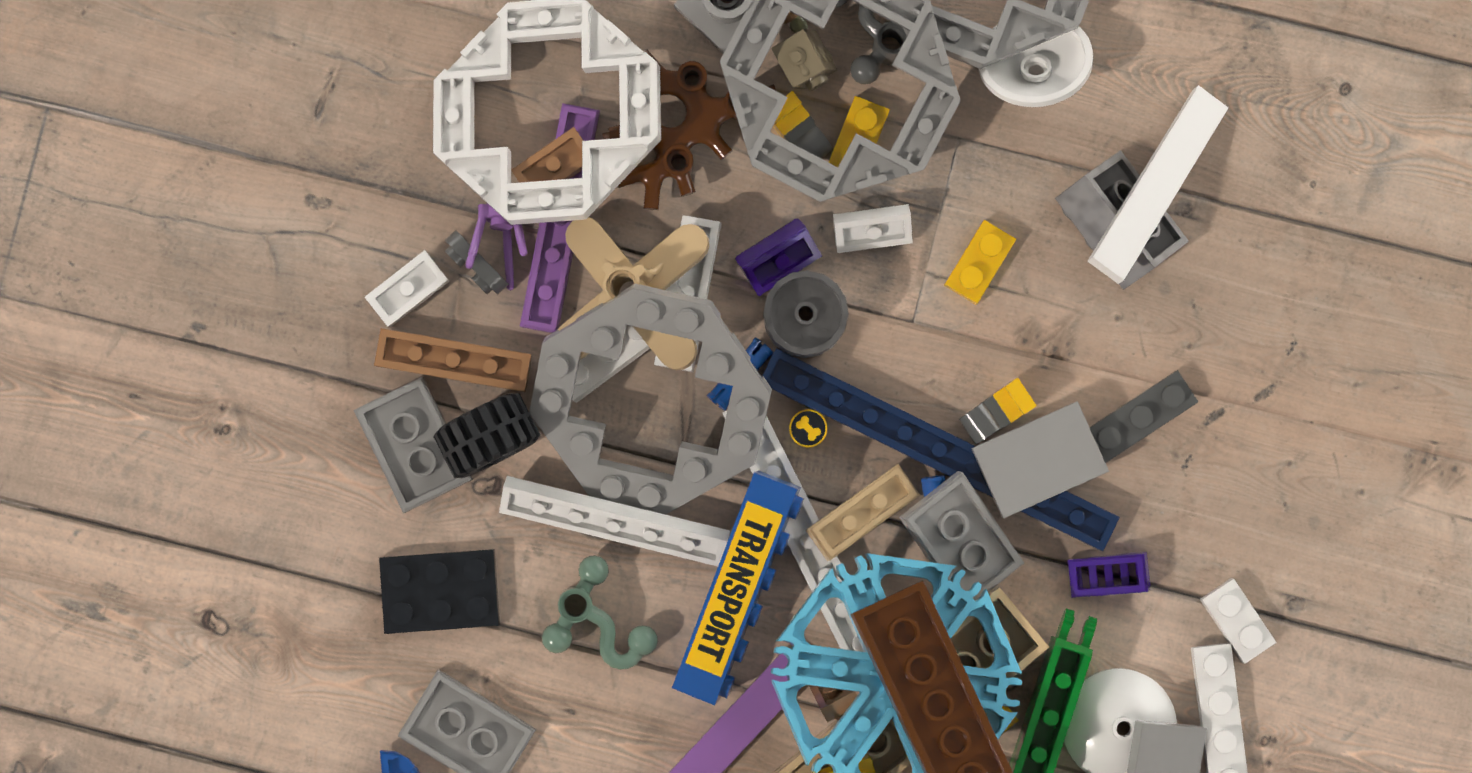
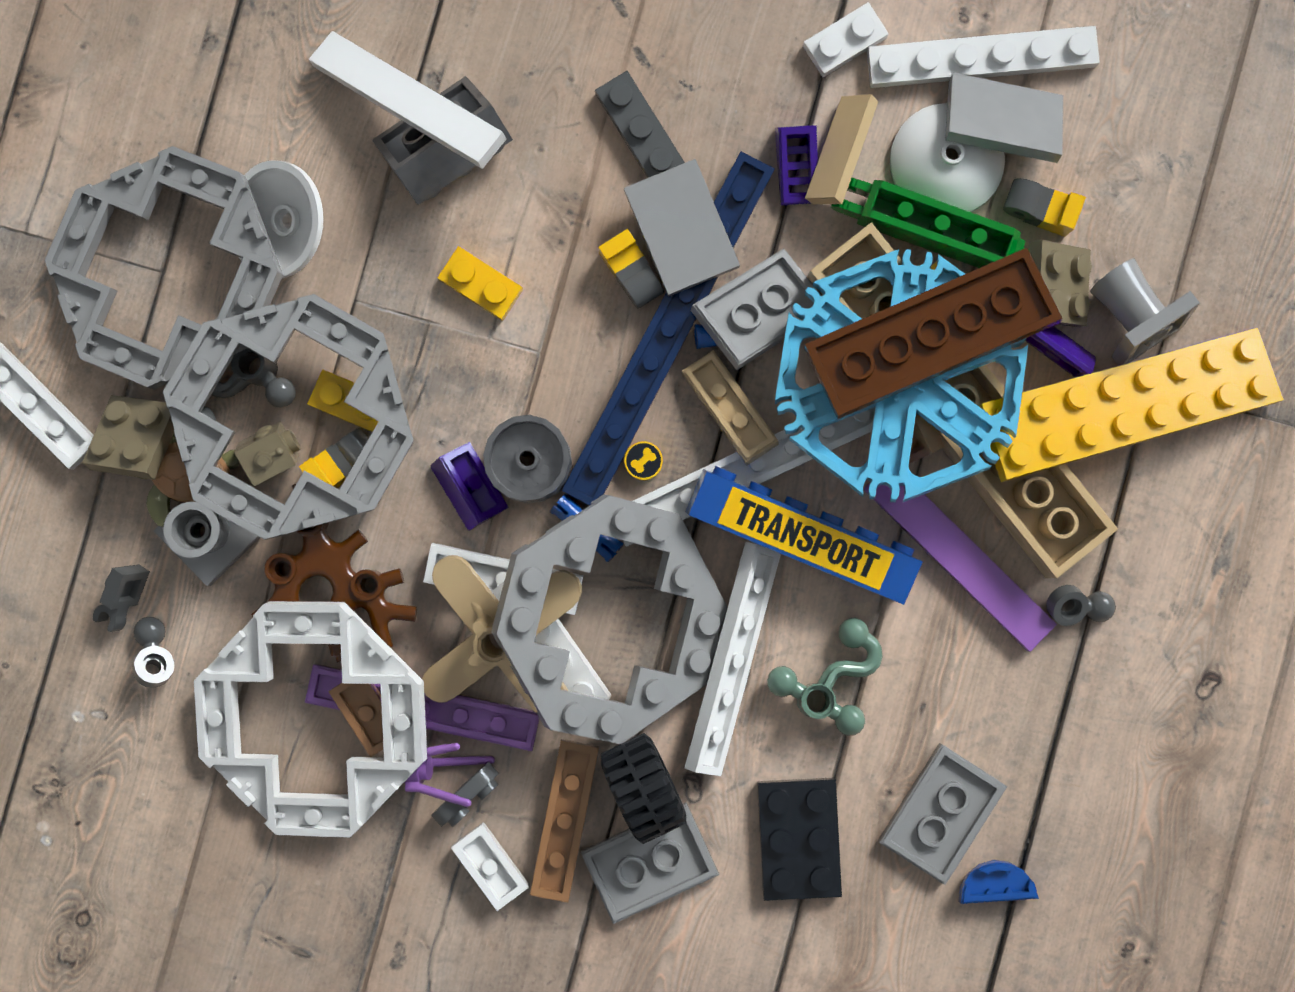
camera: 90 degrees left, 0 degrees up
(872, 228) = (443, 389): white plate -> none
(1124, 618) = (841, 149): none -> tan tile

